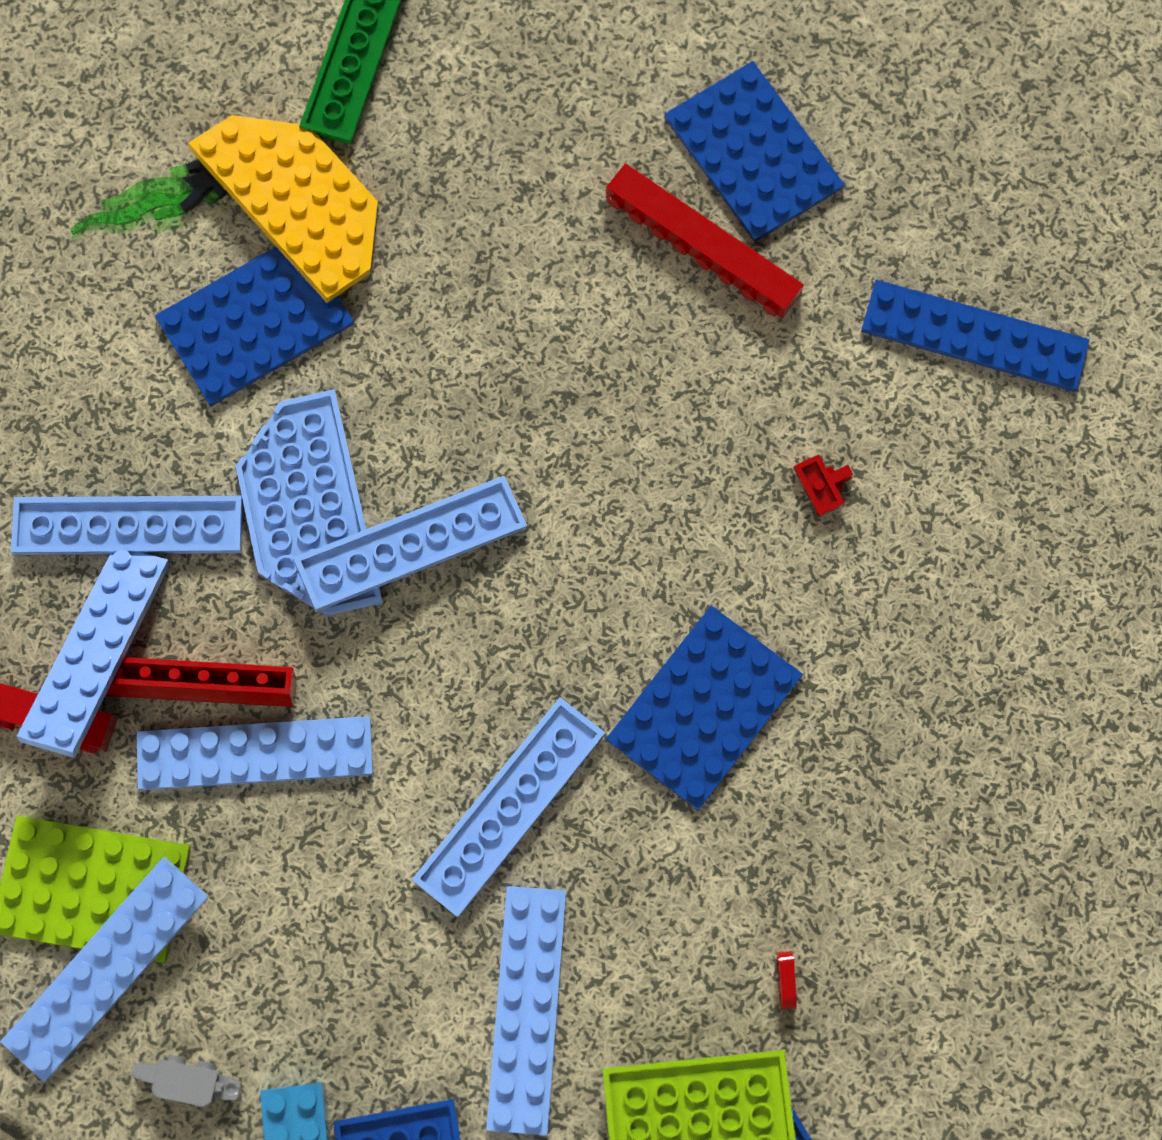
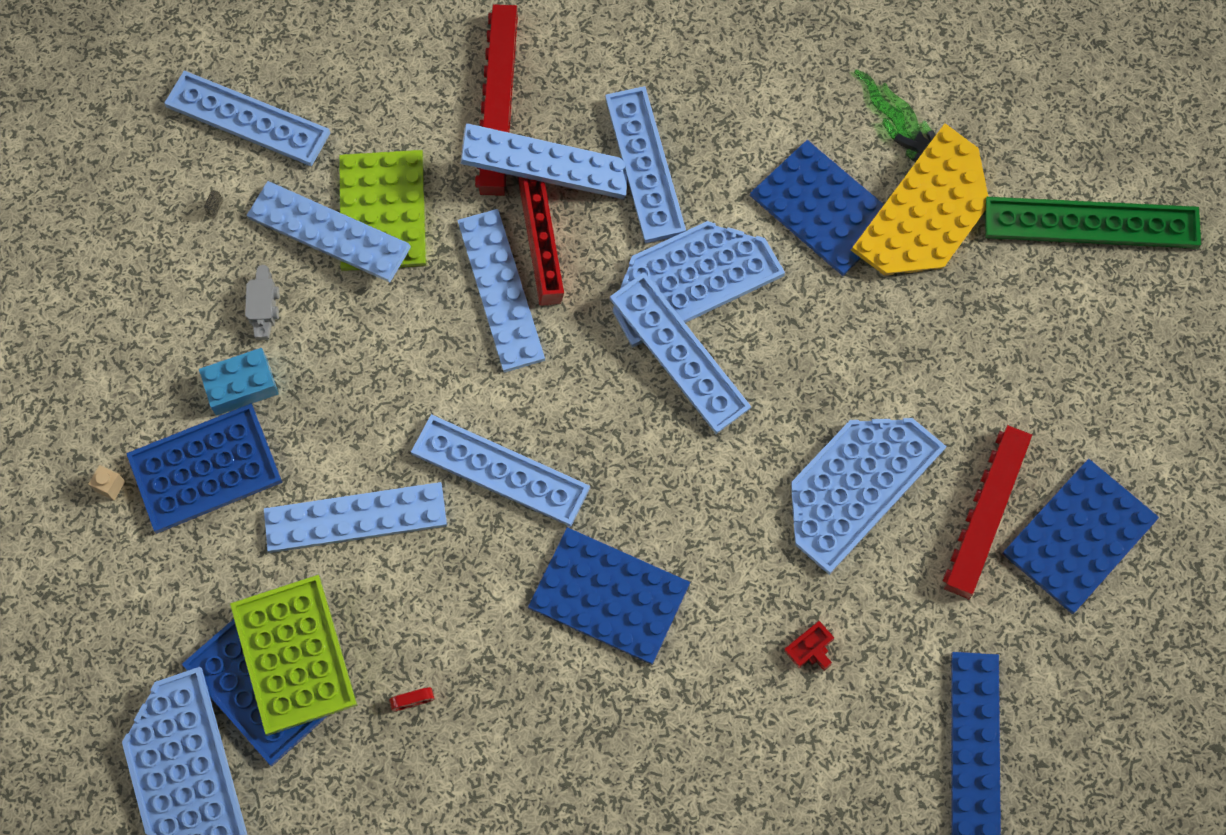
camera: 80 degrees right, 5 degrees down
(633, 379) = (857, 484): none -> light blue plate

